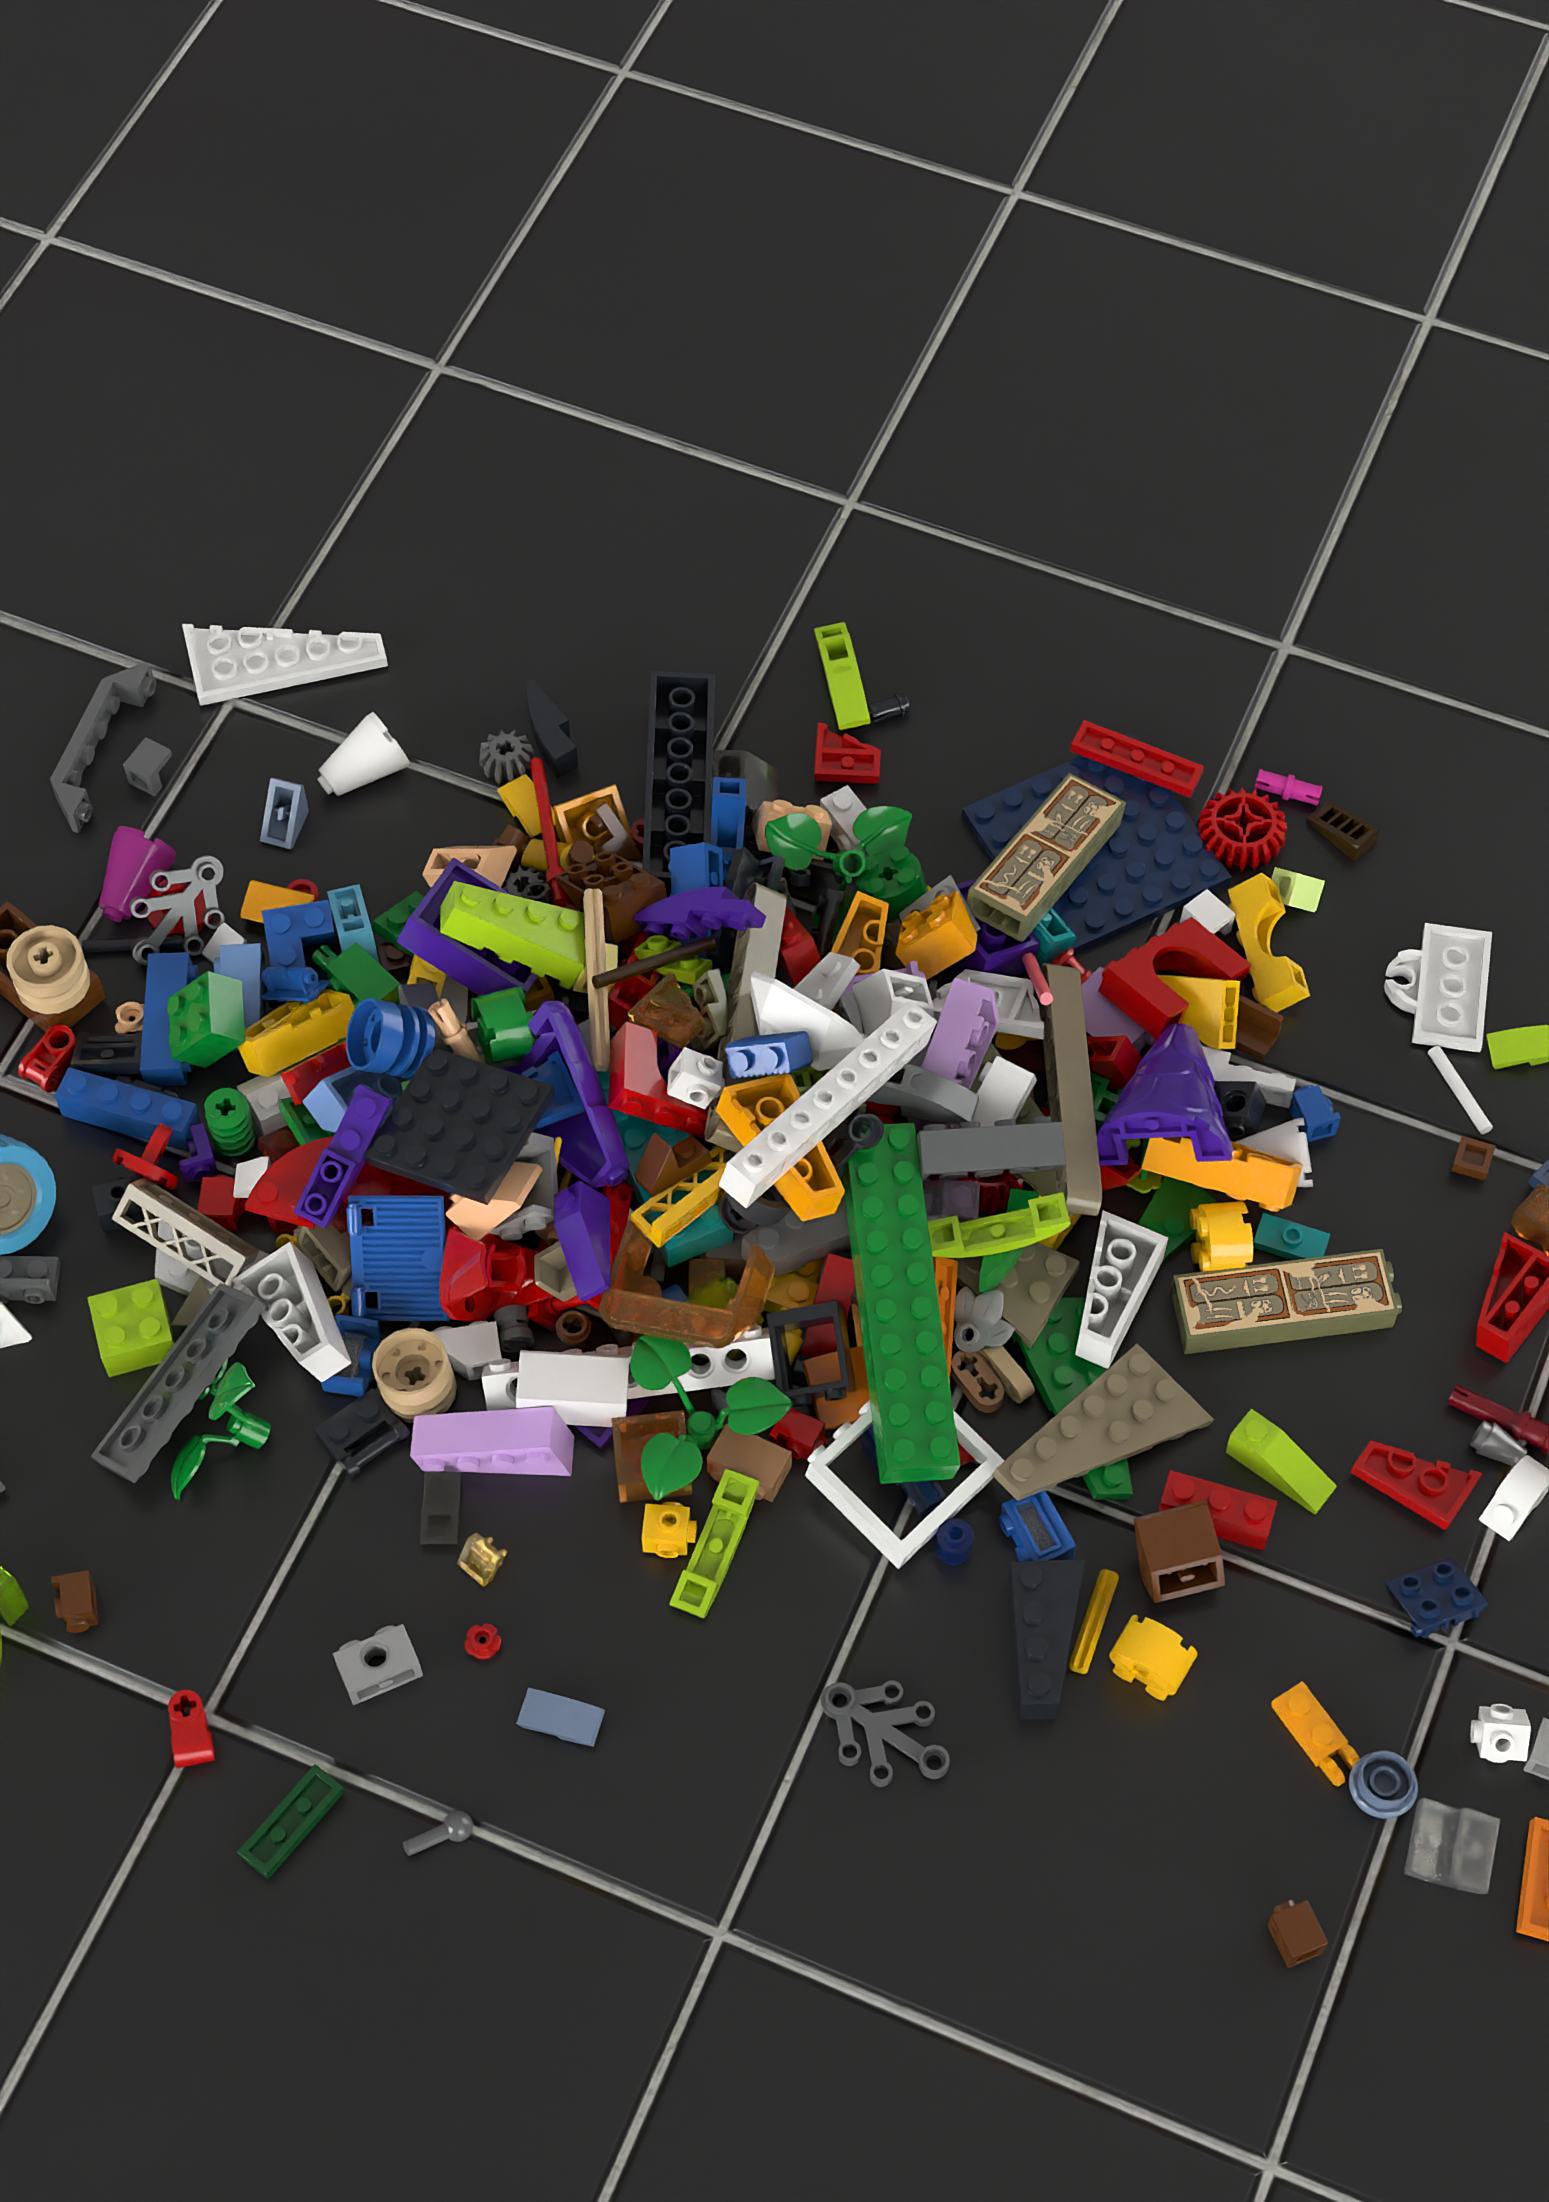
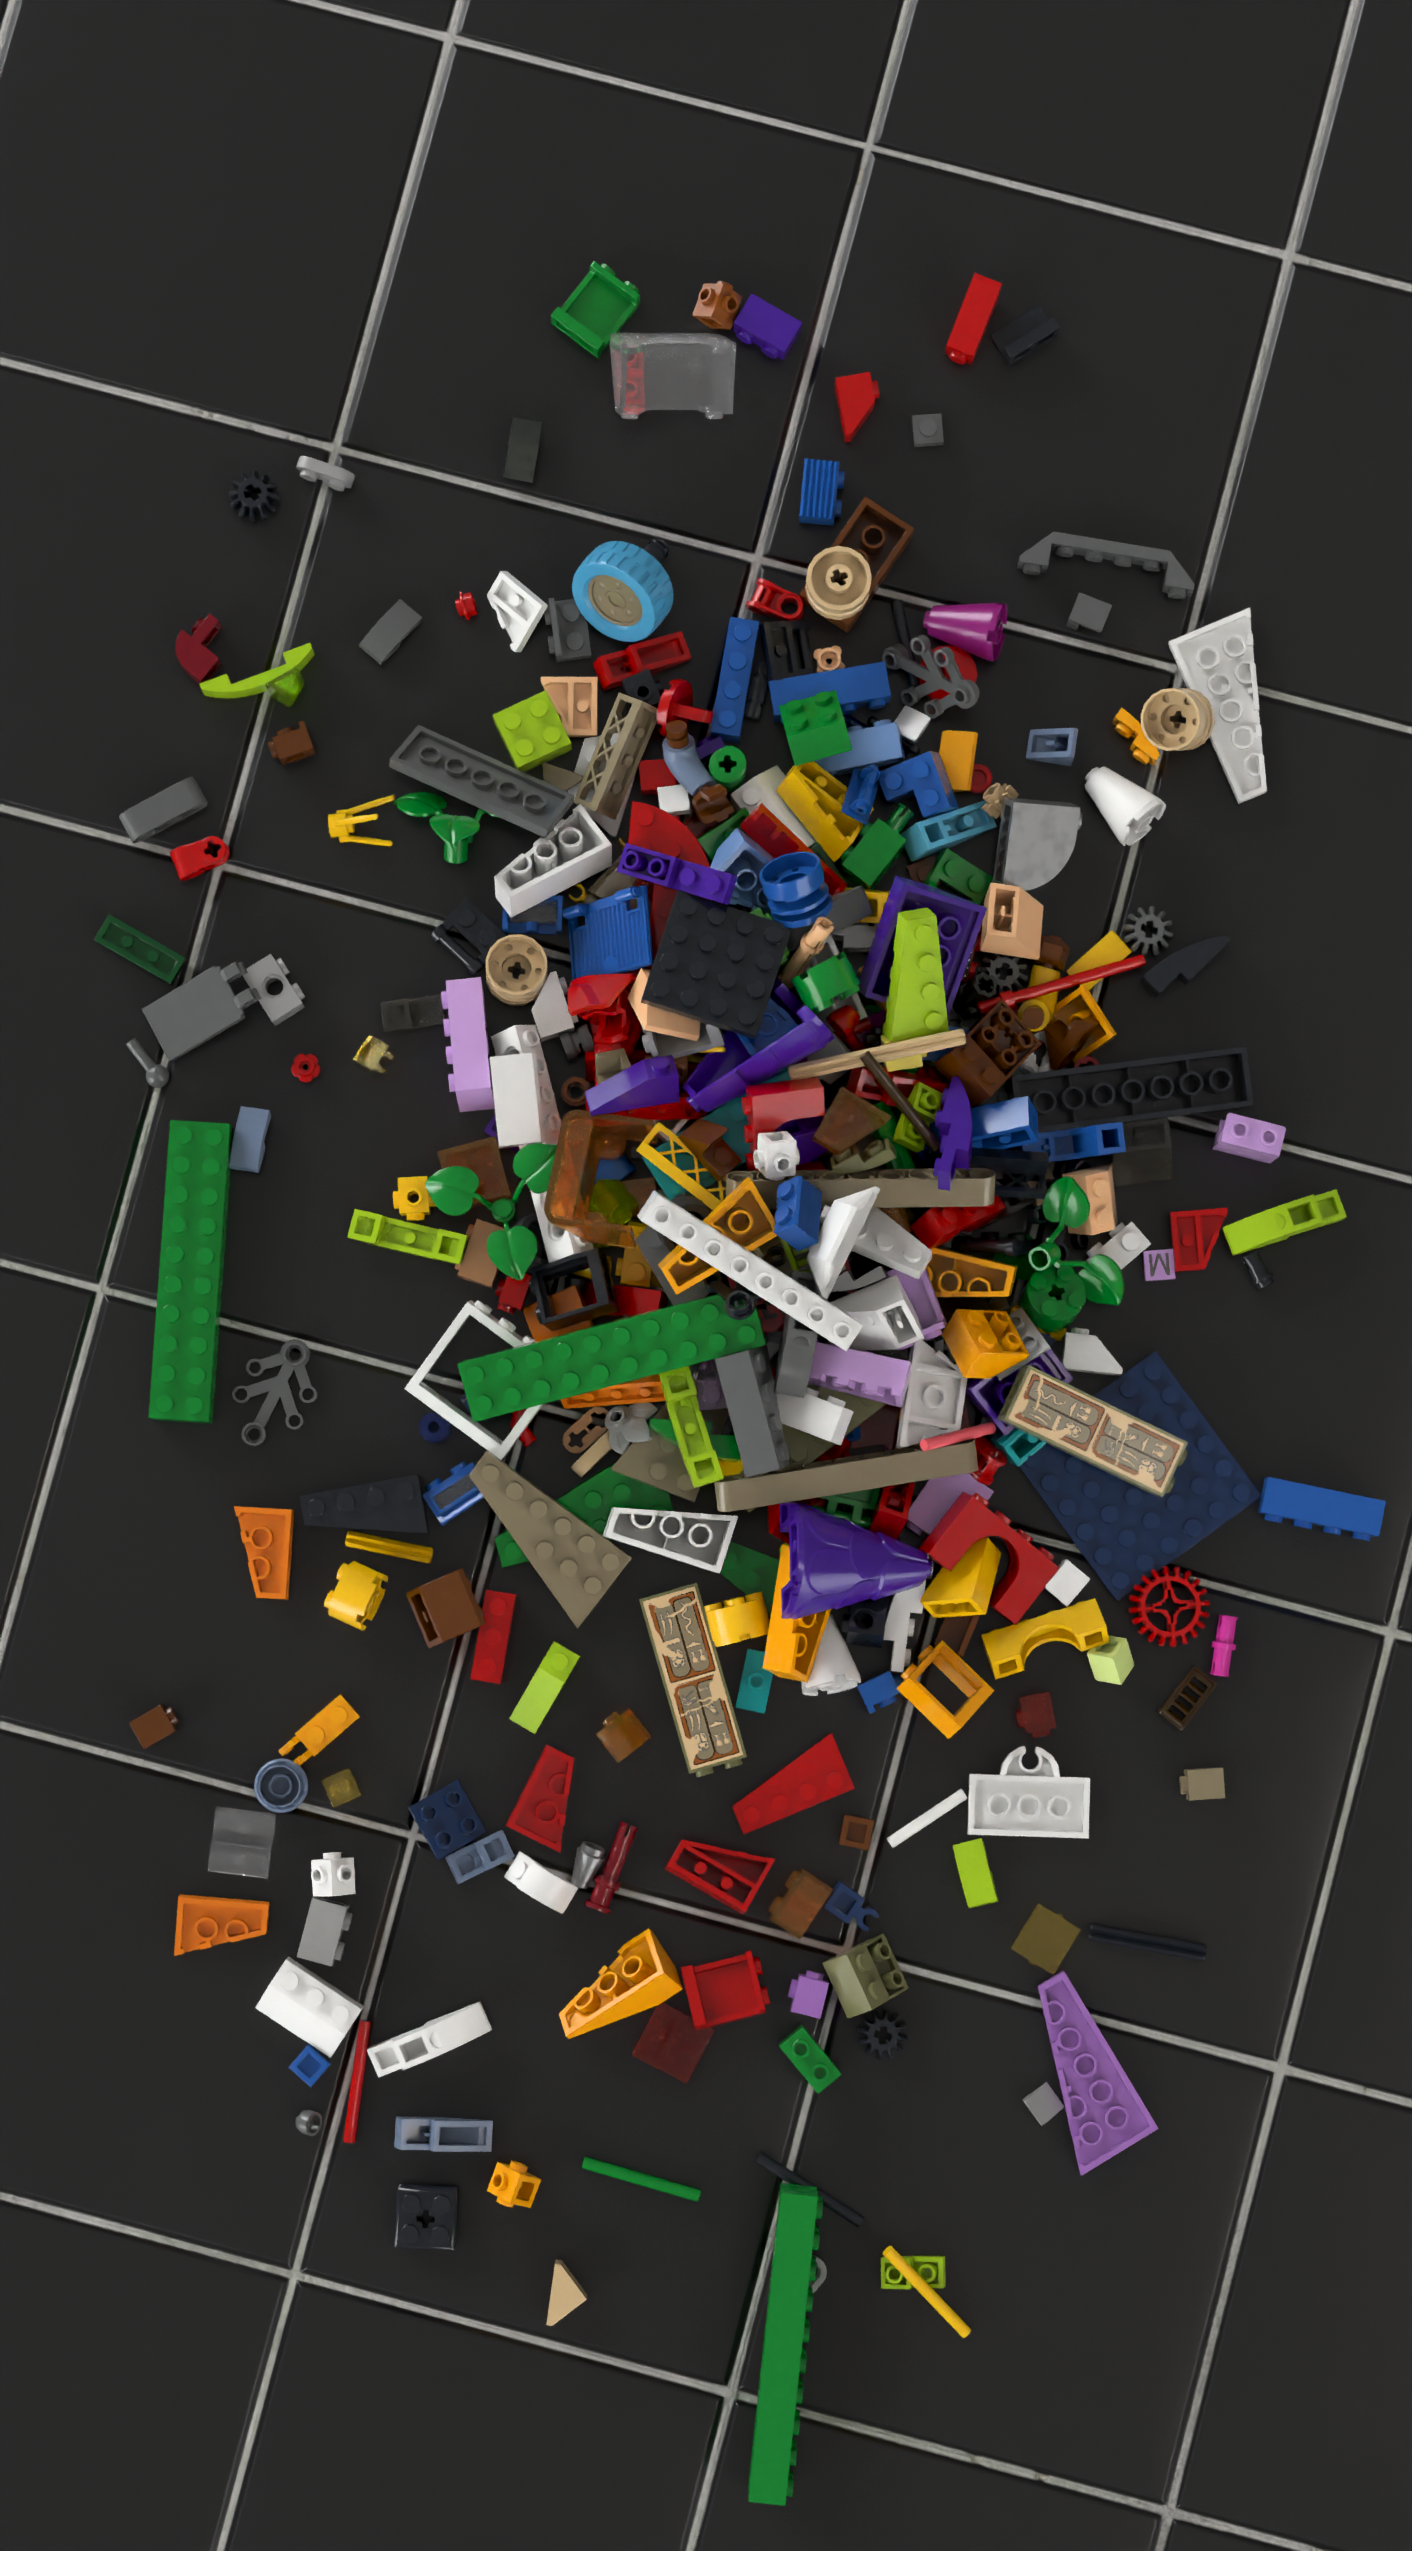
camera: 80 degrees right, 25 degrees up
(77, 1206) = (653, 654): none -> red slope
(107, 1272) = (575, 703): none -> light nougat wing
(119, 1768) = (163, 810): none -> dark grey beam
(191, 1558) = (343, 823): none -> yellow plant
(209, 1160) = (684, 764): none -> piece
(276, 675) = (1161, 717): none -> tan wheel
(299, 735) = (1142, 748): none -> light orange slope
(332, 870) = (994, 797): none -> tan gear
(385, 840) = (1034, 841): none -> flat silver brick
(385, 1754) = (199, 1010): none -> dark grey tile
(717, 1808) = (191, 1271): none -> green brick
(754, 677) = (1249, 1138): none -> lavender panel
(870, 792) = (1158, 1265): none -> lavender tile
(958, 860) = (1087, 1354): none -> white slope
(1081, 1763) = (268, 1547): none -> orange wing
(1137, 758) = (1223, 1503): red plate -> none
(1149, 681) = (1321, 1507): none -> blue brick
(1347, 1381) = (622, 1734): none -> clear orange brick
(1350, 964) = (1036, 1714): none -> clear red brick
(1350, 1038) = (959, 1673): none -> light orange window
(1389, 1717) = (341, 1787): none -> clear yellow tile
(1418, 1215) = (800, 1785): none -> red wing
(1437, 821) = (1203, 1783): none -> dark tan brick
(1482, 1564) = (479, 1856): none -> sand blue slope

